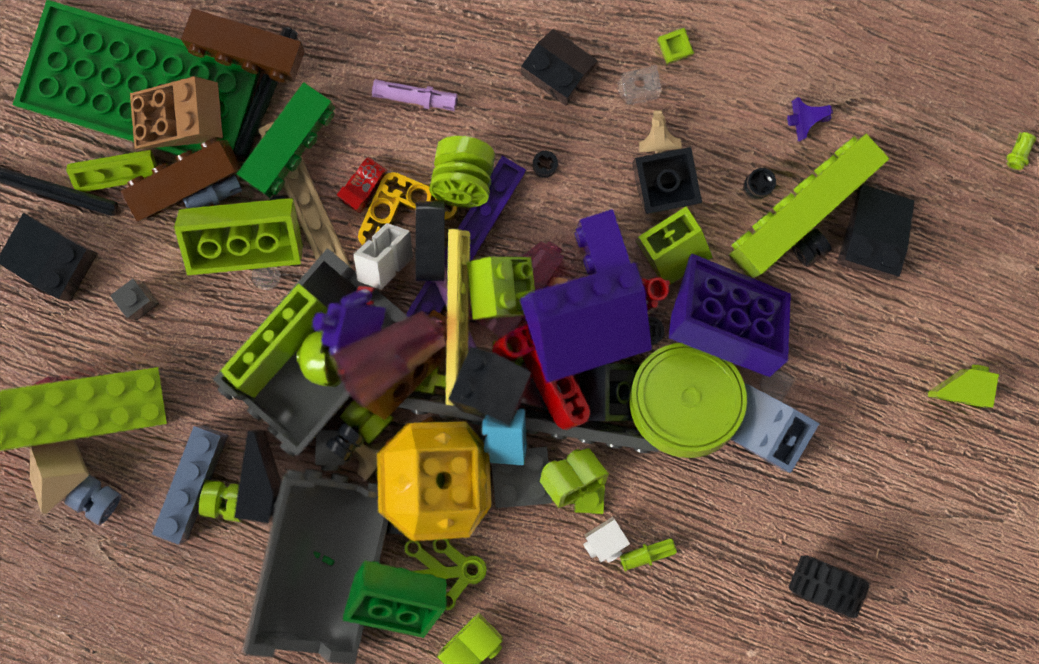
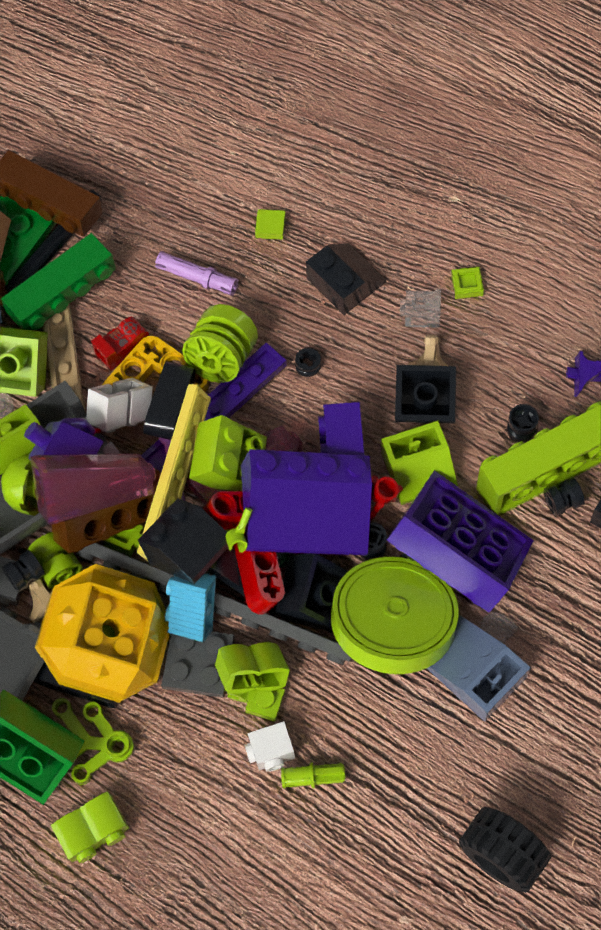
camera: 25 degrees right, 20 degrees down
(471, 24) = (270, 224): none -> lime tile
(536, 373) = (237, 535): none -> lime hand

